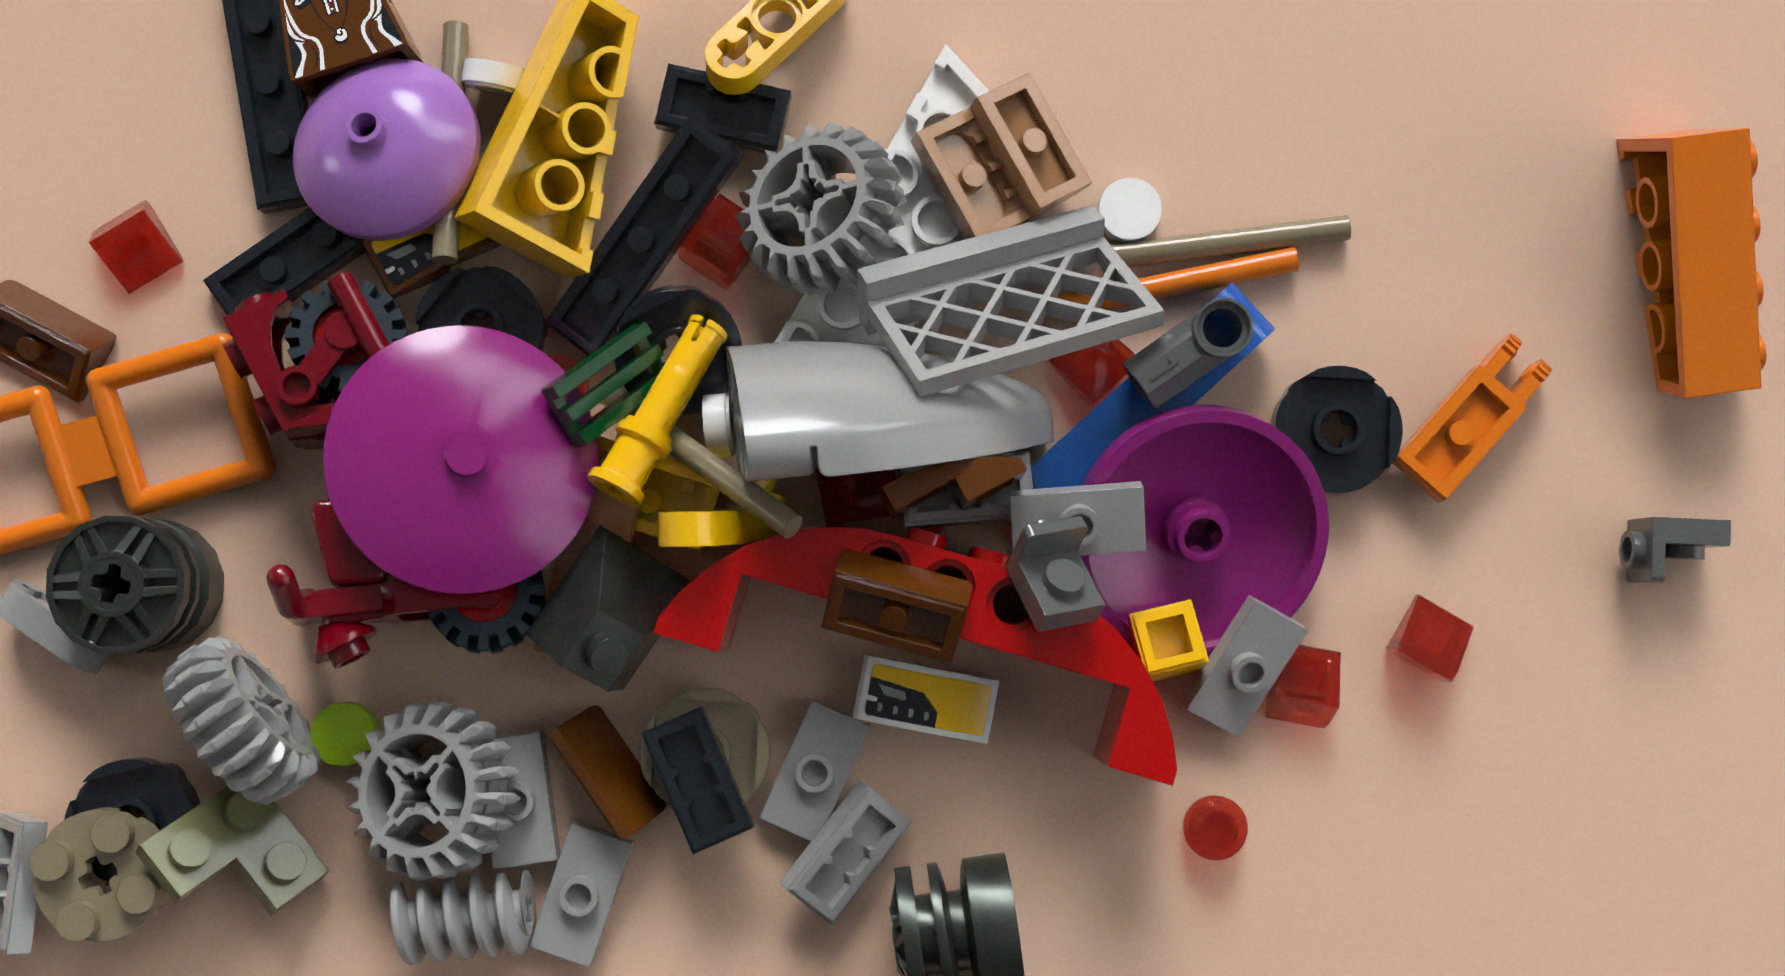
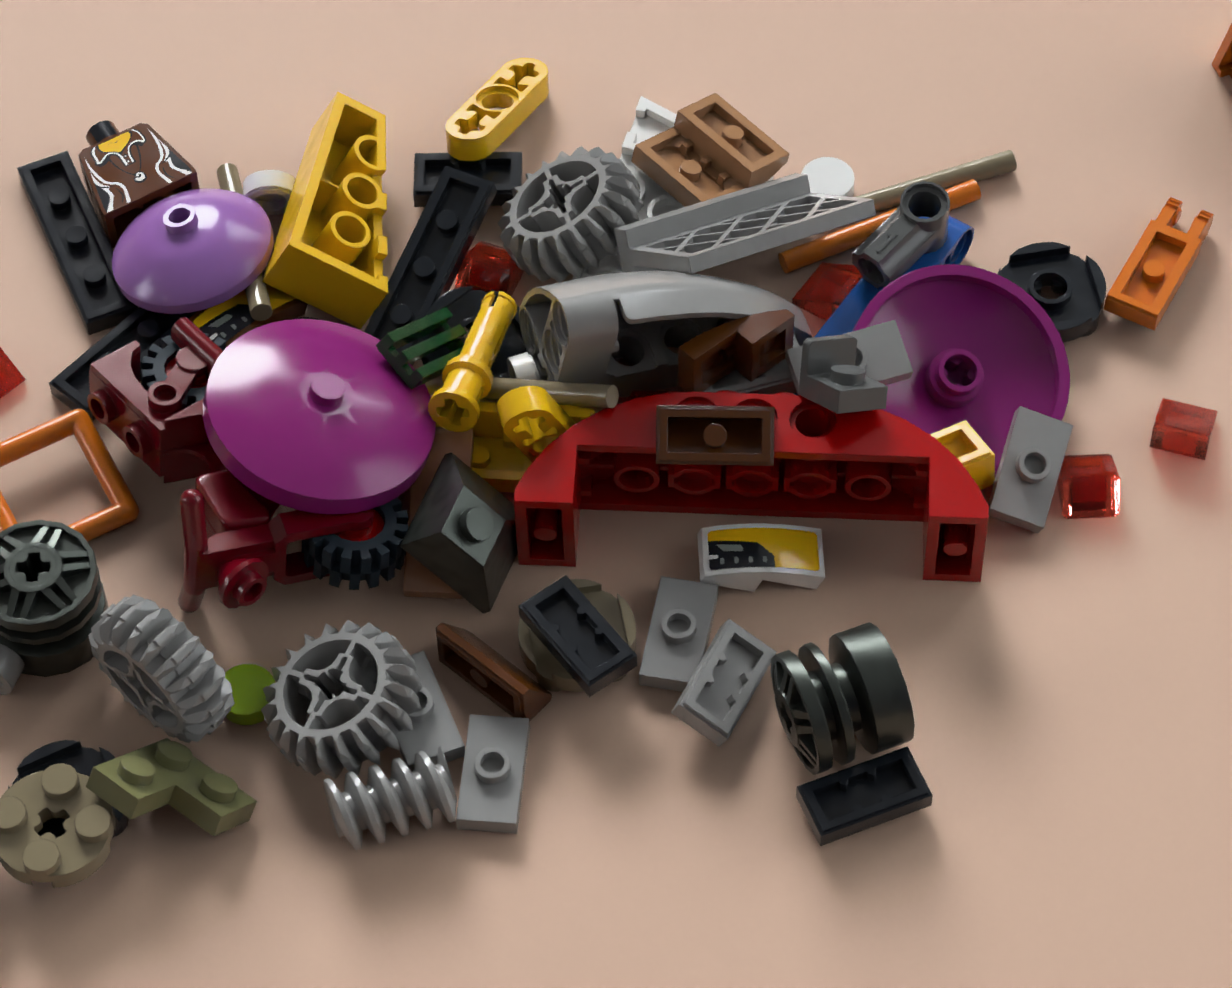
camera: 10 degrees left, 30 degrees down
(1215, 827) = (1046, 600): clear red plate -> none

